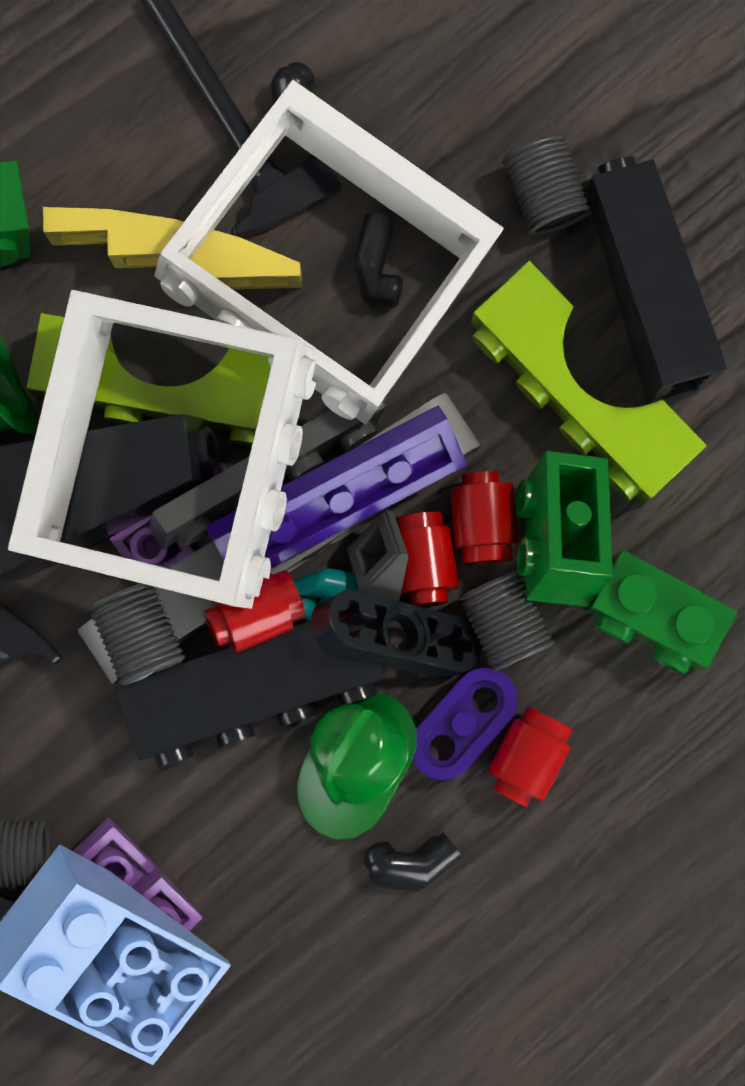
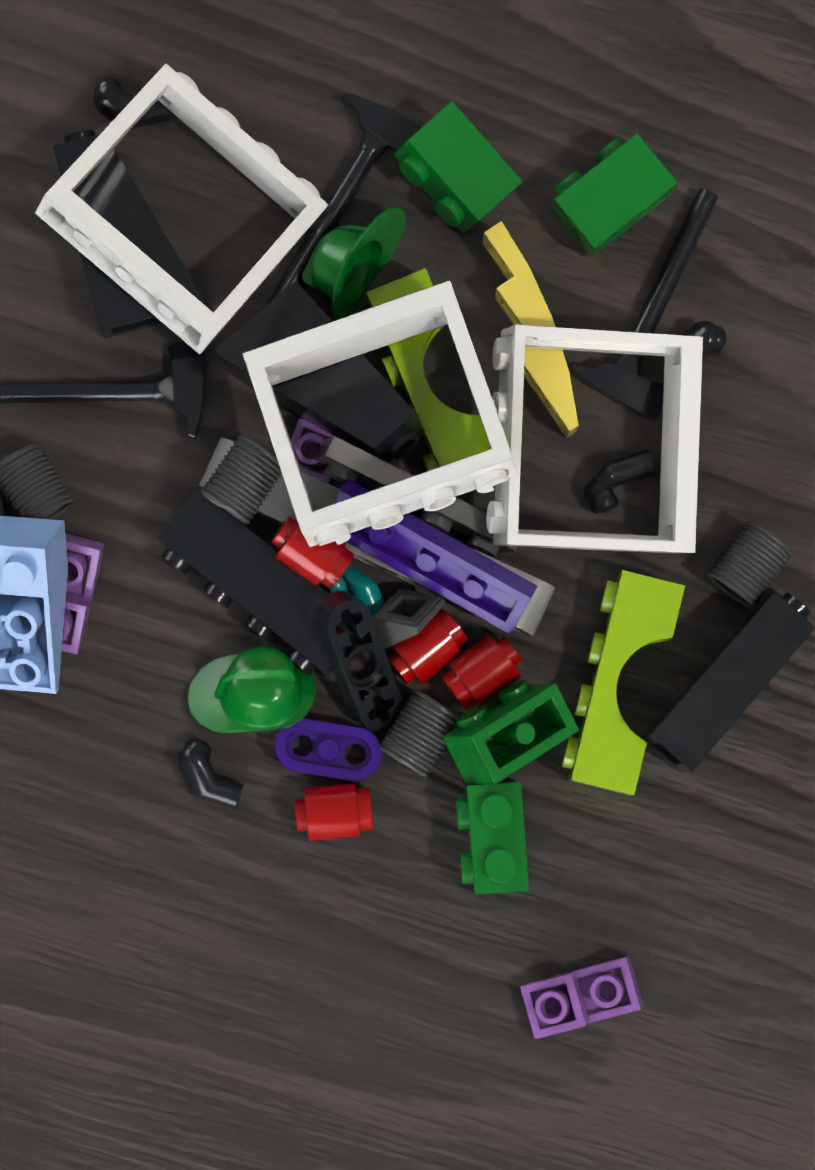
camera: 55 degrees right, 0 degrees up
(88, 81) = (612, 194): none -> green brick

